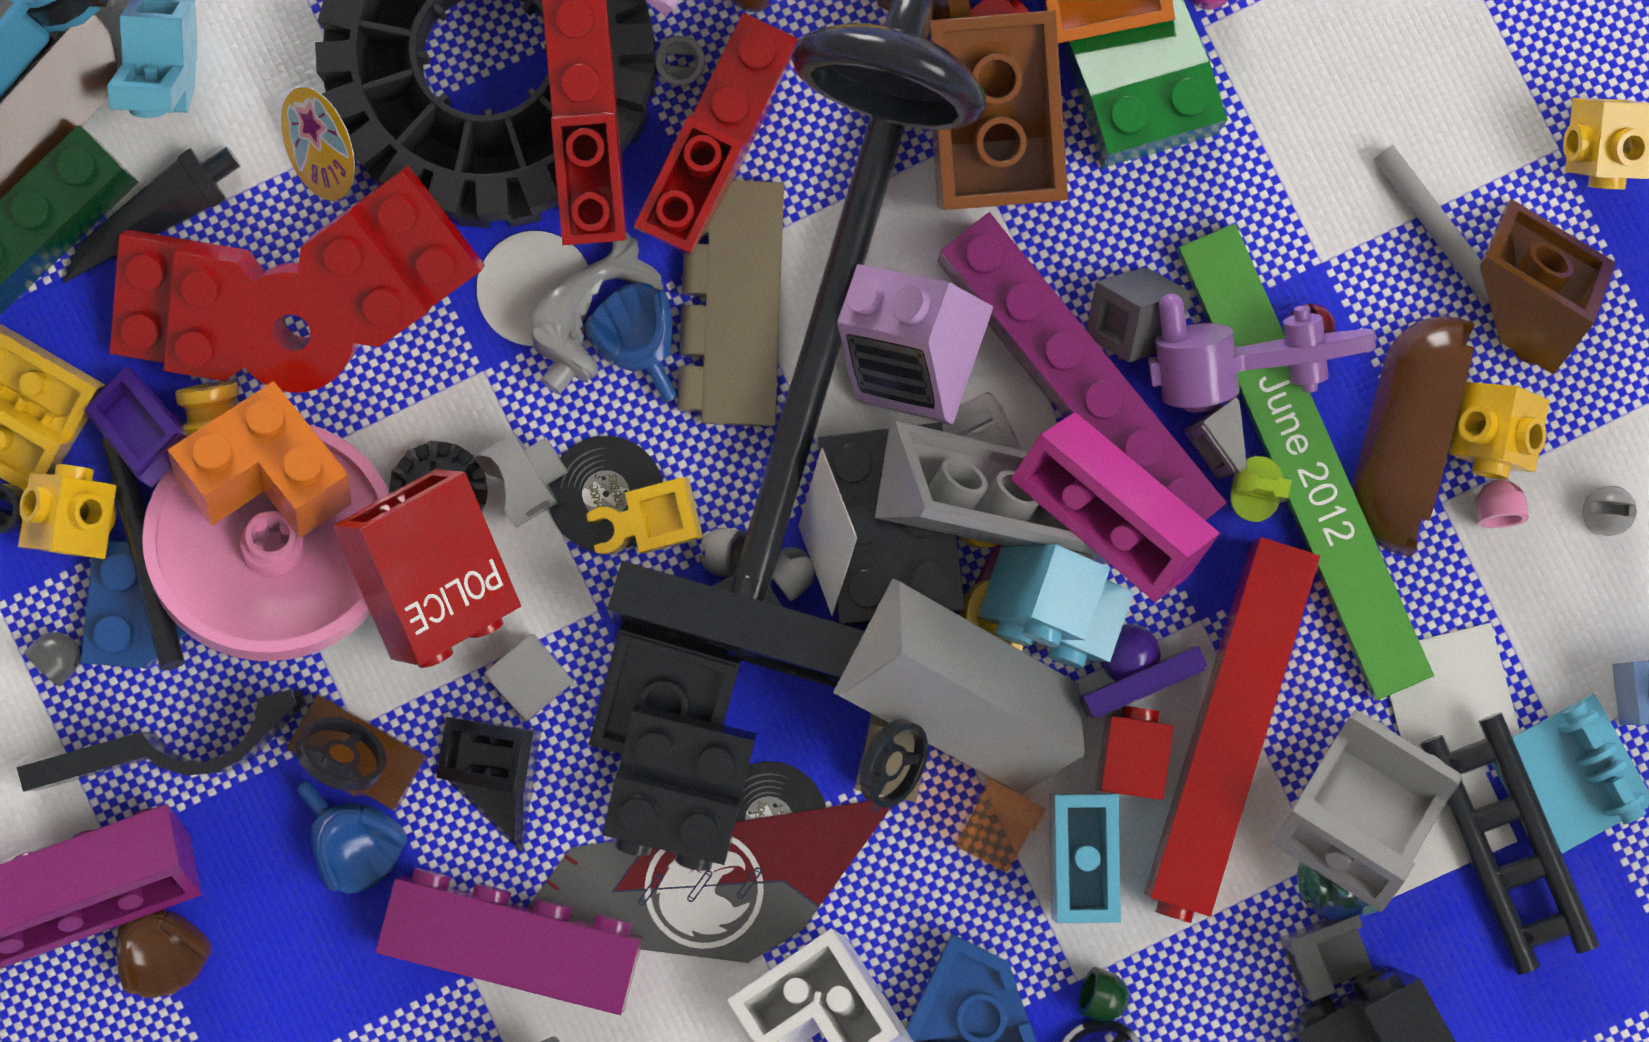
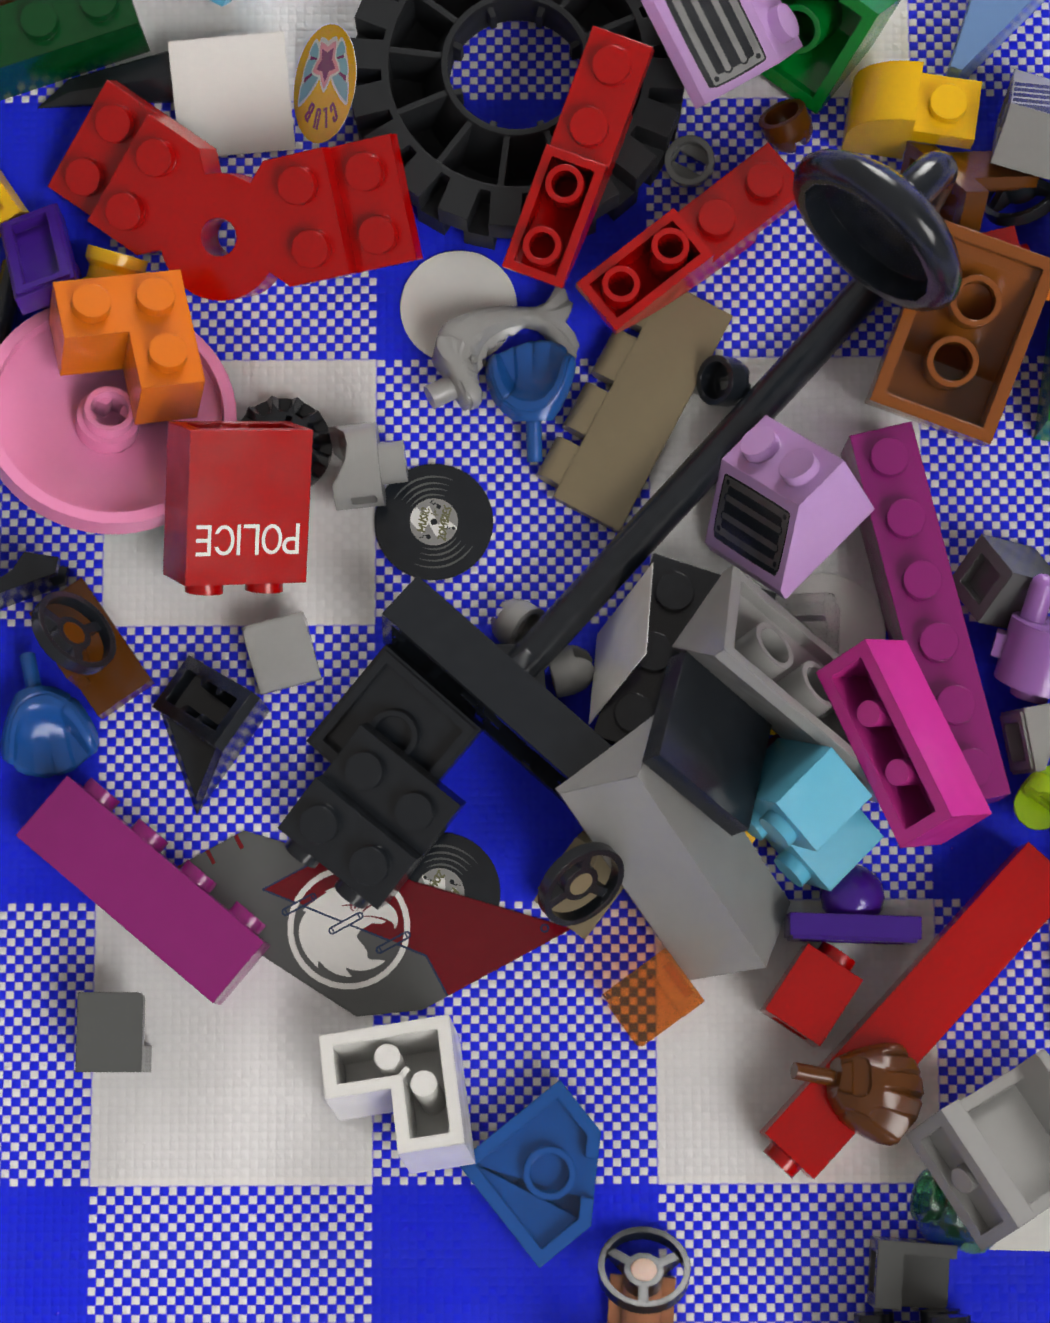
camera: 30 degrees right, 5 degrees down
(236, 187) = (234, 91): none -> white sticker
(655, 516) = (468, 563): yellow plate -> none
(793, 256) = (722, 368): none -> black hinge
(946, 589) = (707, 743): none -> black tile
(1084, 857) = (720, 1064): medium azure brick -> none
(1103, 995) = (676, 1208): dark green hinge -> none
(1225, 818) = (871, 1090): none -> reddish brown piece

